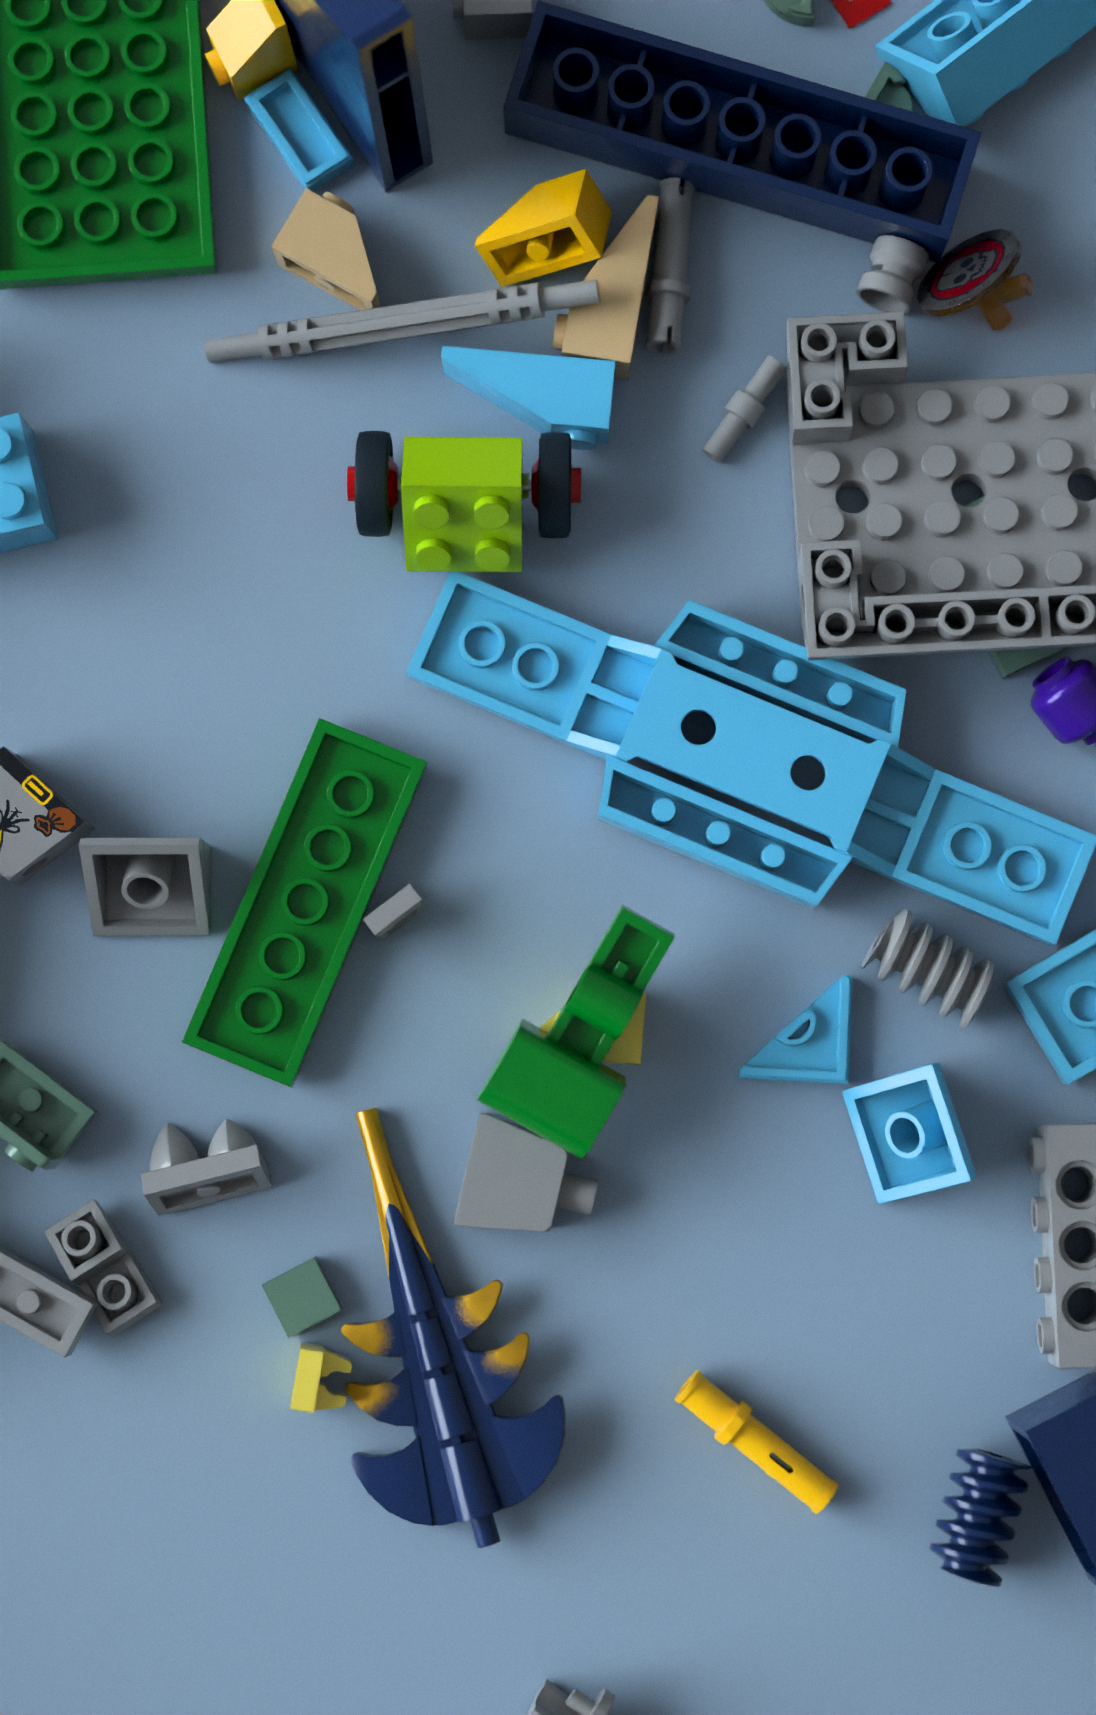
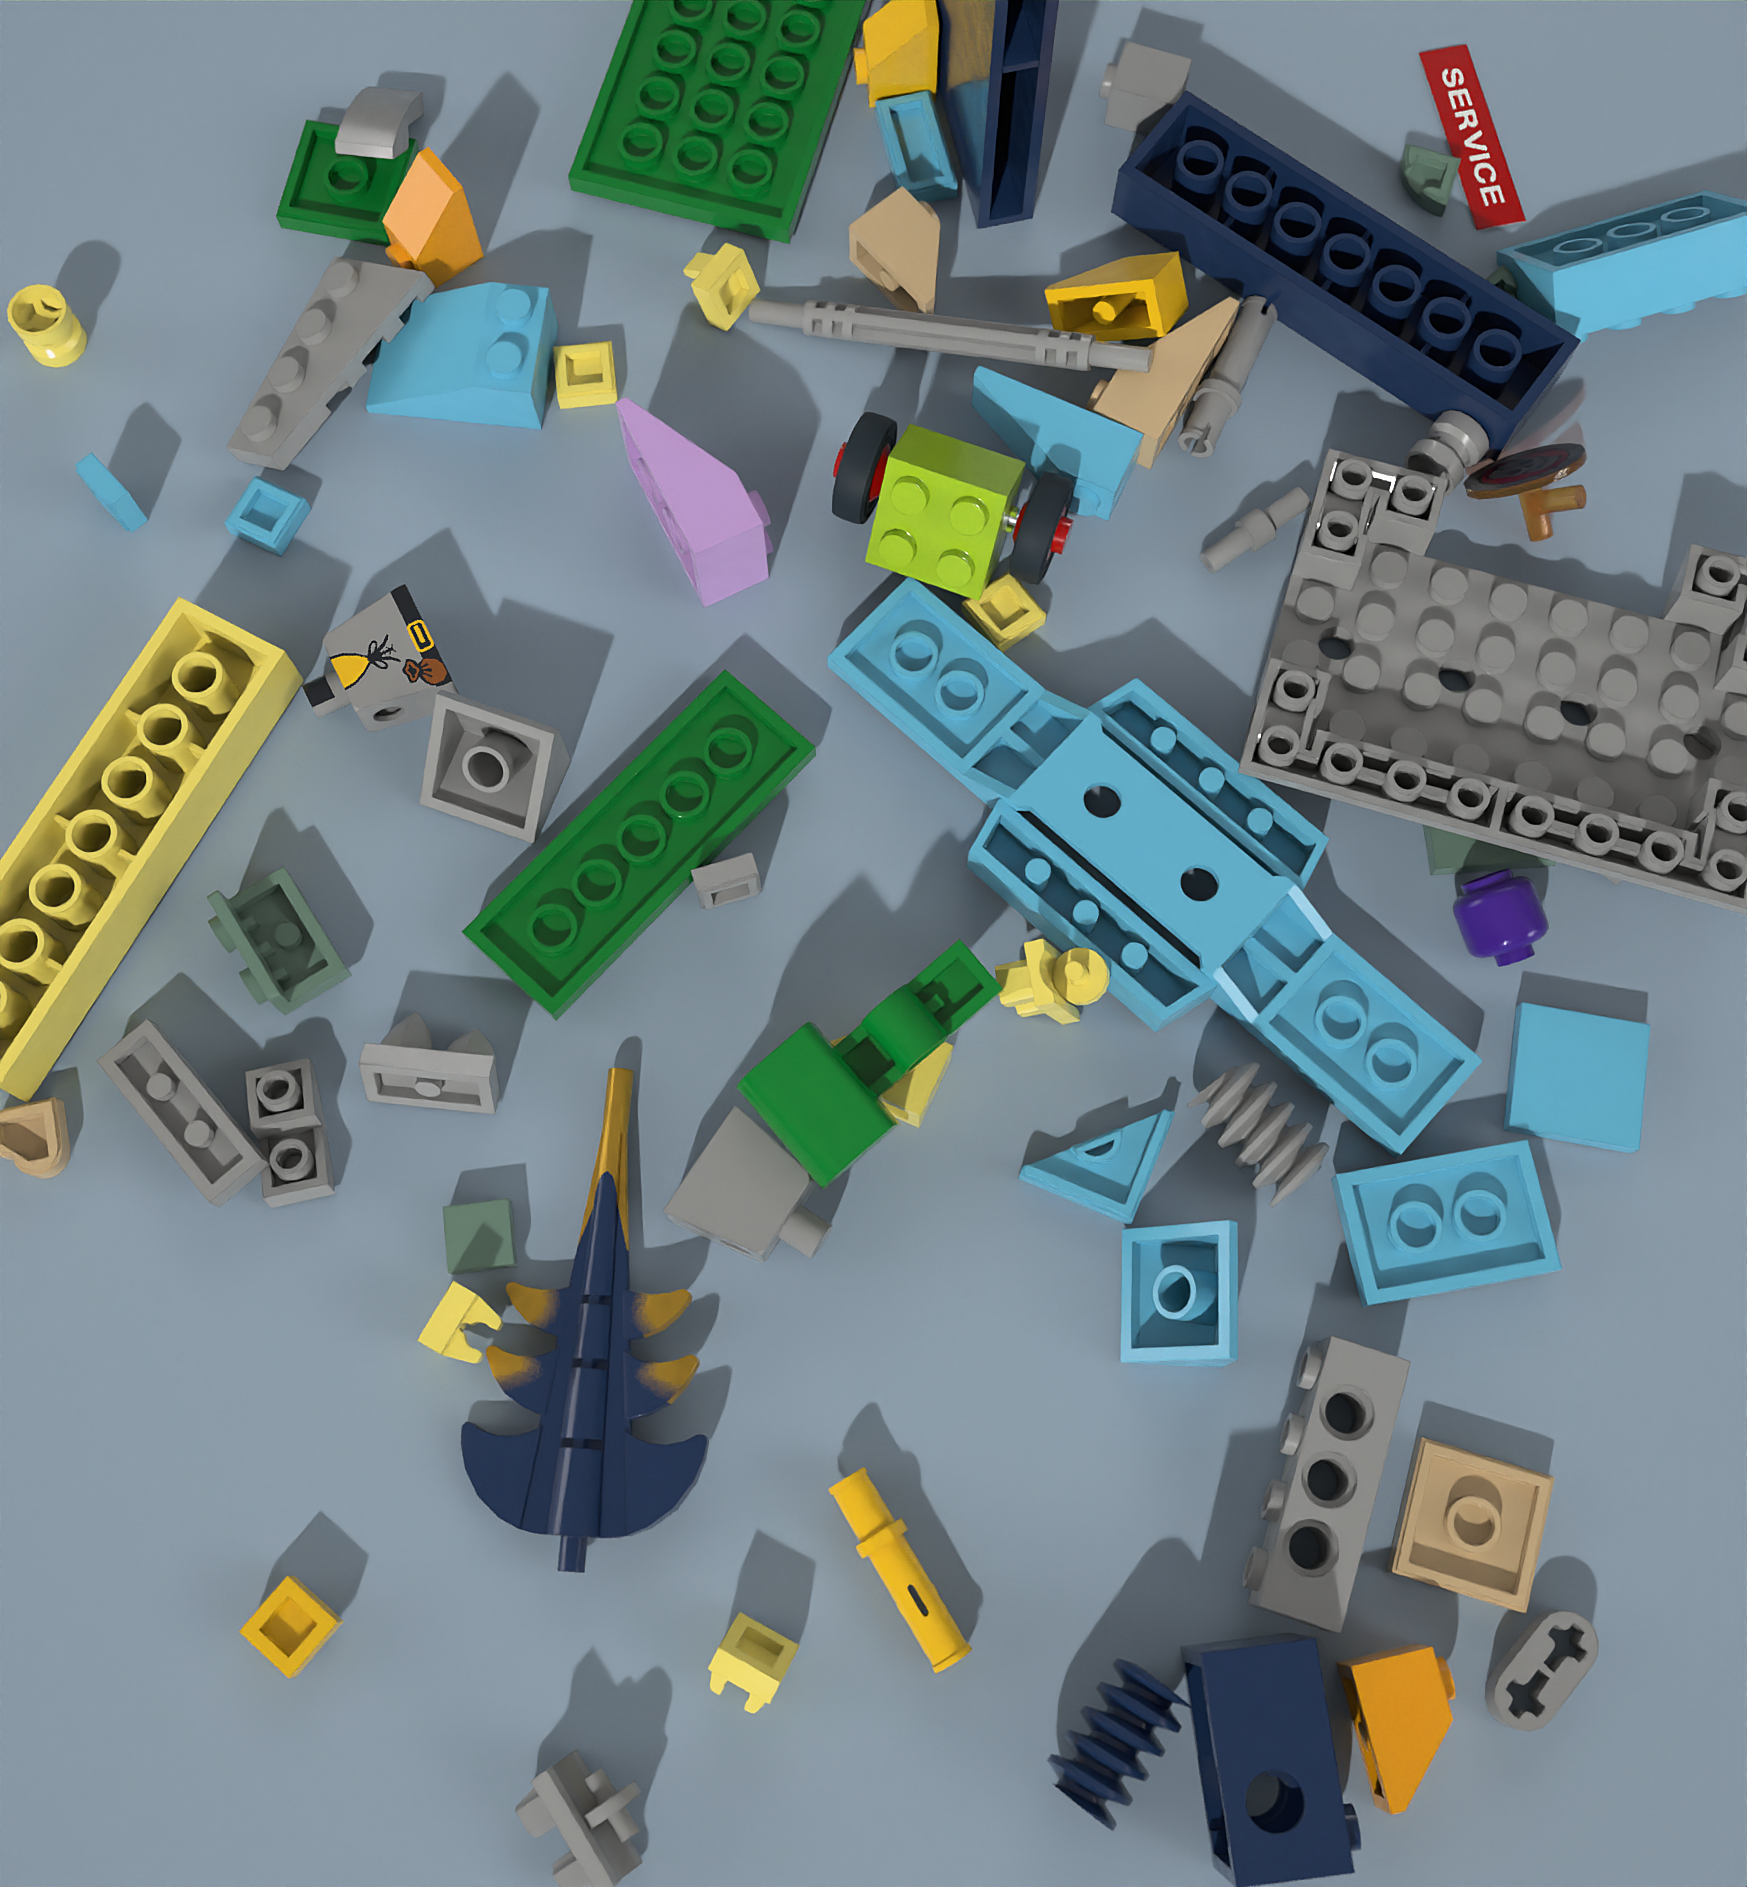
camera: 15 degrees right, 10 degrees down
(78, 472) = (585, 374): none -> light yellow tile
(172, 341) = (722, 284): none -> light yellow tile
(246, 579) = (700, 506): none -> lavender slope
(277, 1671) = (291, 1626): none -> yellow plate
(547, 570) = (1004, 612): none -> light yellow tile
(664, 1559) = (752, 1660): none -> light yellow tile
(712, 904) = (1053, 981): none -> light yellow hips

